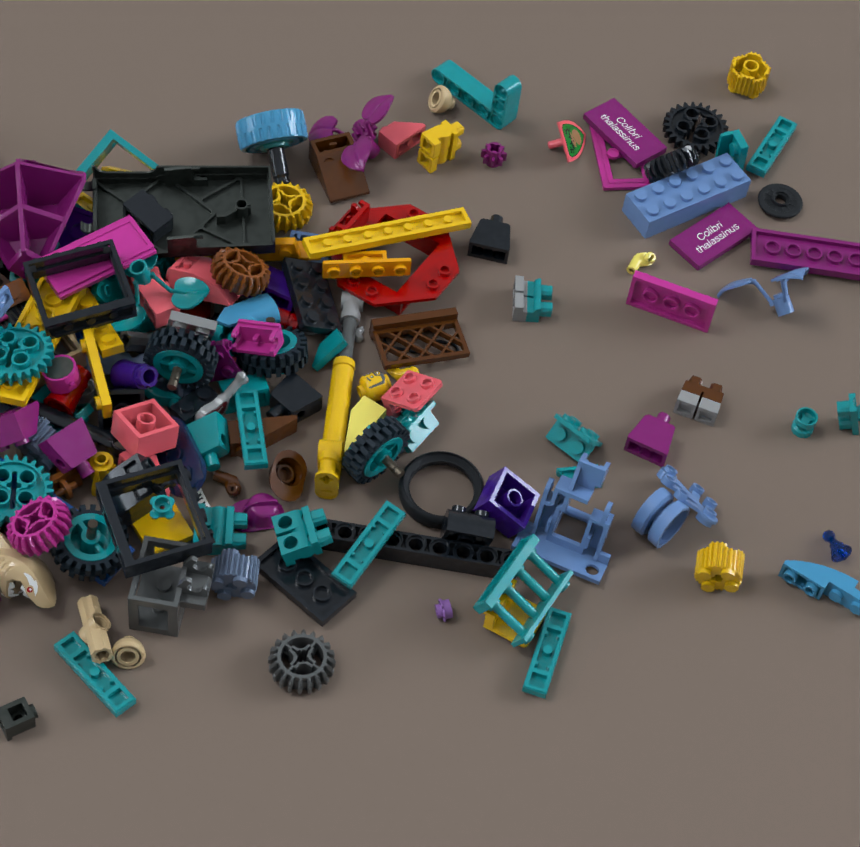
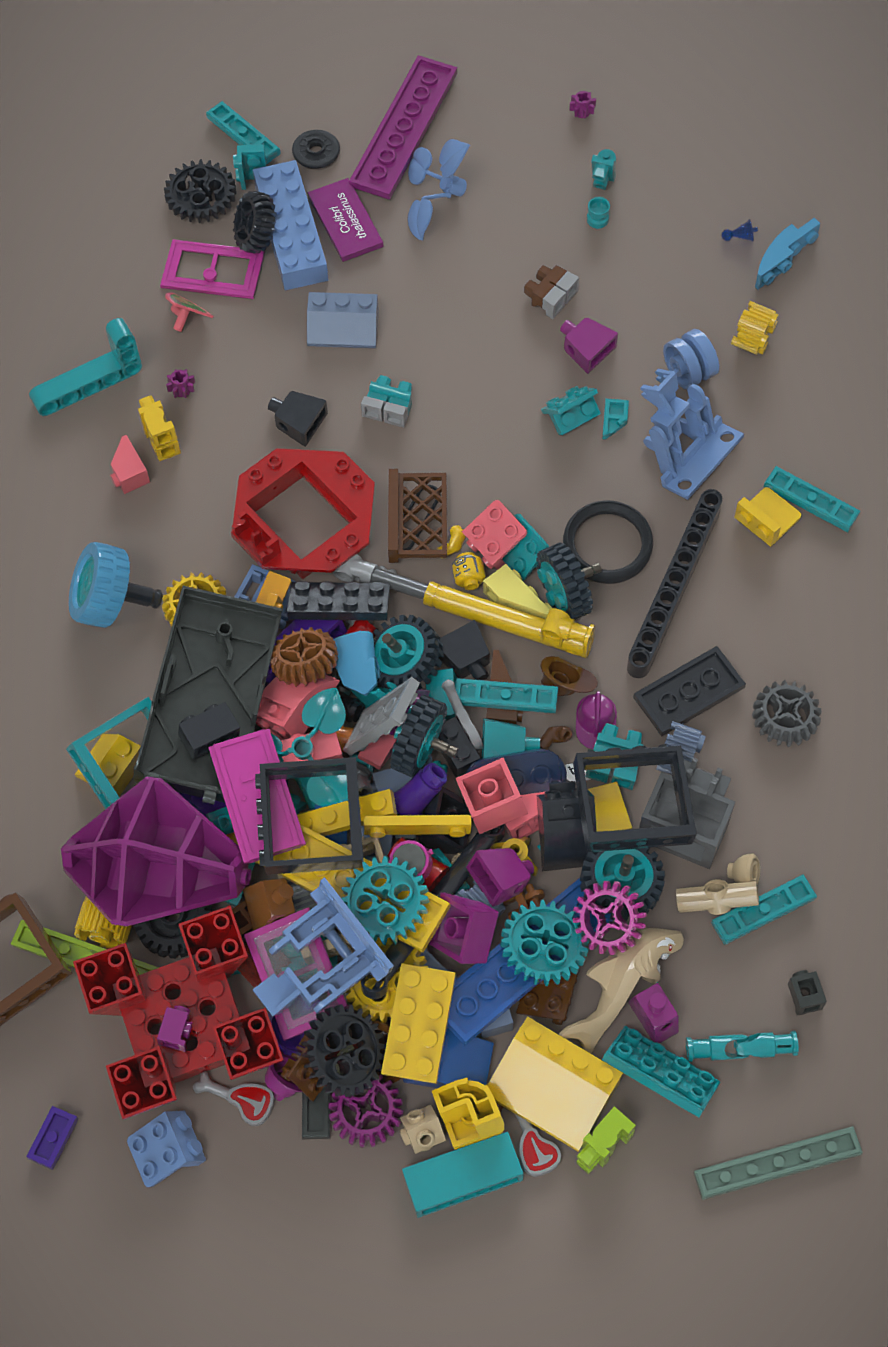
camera: 65 degrees left, 10 degrees up
(165, 501) = (638, 776): teal plate -> none
(257, 337) = (402, 657): dark pink hinge -> none
(298, 533) = (651, 671): teal hips -> none
(329, 349) = (406, 599): teal tile -> none
(336, 179) = (157, 535): reddish brown slope -> none
(360, 129) = (109, 499): magenta gear -> none
(364, 148) = (160, 502): magenta plant -> none
(366, 264) = (319, 534): light orange bracket -> none
(368, 544) = (673, 617): teal plate -> none
(386, 233) = (288, 503): yellow plate -> none
(440, 100) = (85, 414): tan brick -> none
(443, 609) = (748, 574): medium lavender plate -> none
(468, 527) = (672, 525): black brick -> none
(502, 584) = (747, 504): teal fence -> none
(508, 501) = (645, 484): dark purple brick -> none
(602, 251) = (342, 320): none -> sand blue slope
(624, 133) = (186, 255): magenta tile -> none
(640, 260) = (360, 285): light yellow arm -> none
(671, 301) = (431, 275): dark pink plate -> none
(706, 514) = (678, 325): medium blue plant -> none
(748, 75) = (143, 121): yellow brick -> none

